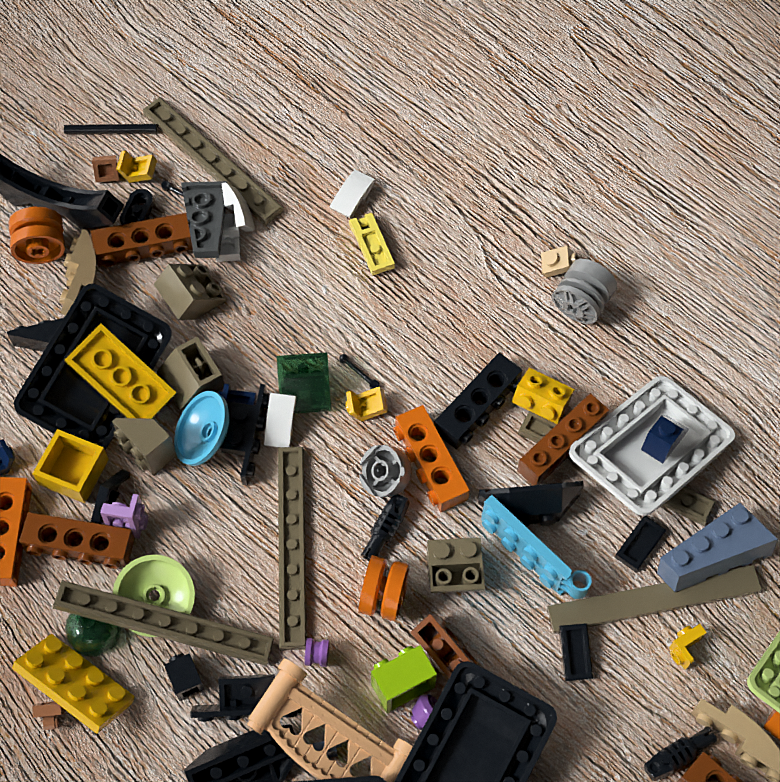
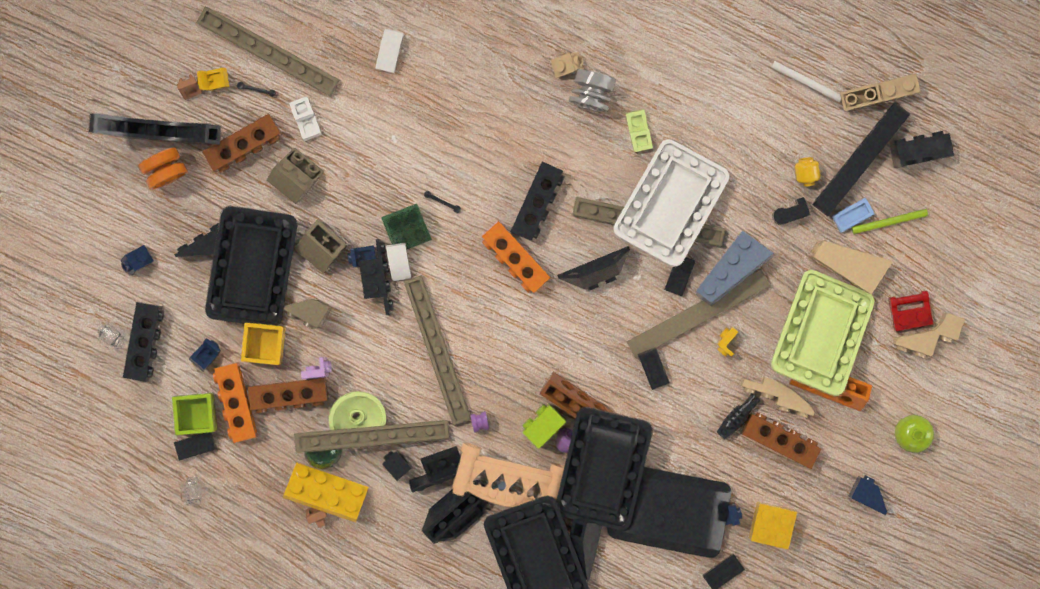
camera: 20 degrees left, 25 degrees up
(80, 269) = (207, 185): tan slope -> none
(108, 494) = (296, 356): black tile -> none
(110, 128) = (176, 47): black bar -> none
(120, 375) = (273, 268): yellow plate -> none
(133, 211) = (226, 118): black plate -> none
(201, 428) = (345, 288): medium azure dish -> none
(205, 216) = (282, 104): dark grey wing -> none
(236, 202) = (303, 88): white slope -> none
(366, 404) = (456, 229): yellow bracket -> none
(372, 244) = (418, 91): light yellow plate -> none
(383, 588) = (512, 367): orange wheel -> none
(385, 471) = (487, 280): light grey cylinder -> none
(386, 525) = (499, 318): black hinge -> none
(455, 565) = (556, 336): dark tan slope -> none
(532, 551) = (605, 311): medium azure hinge -> none
(542, 395) = (583, 185): yellow brick -> none
(555, 445) = (606, 218): dark orange brick -> none
(629, 357) = (638, 130): none -> yellowish green slope
(663, 438) = (679, 197): dark blue slope -> none

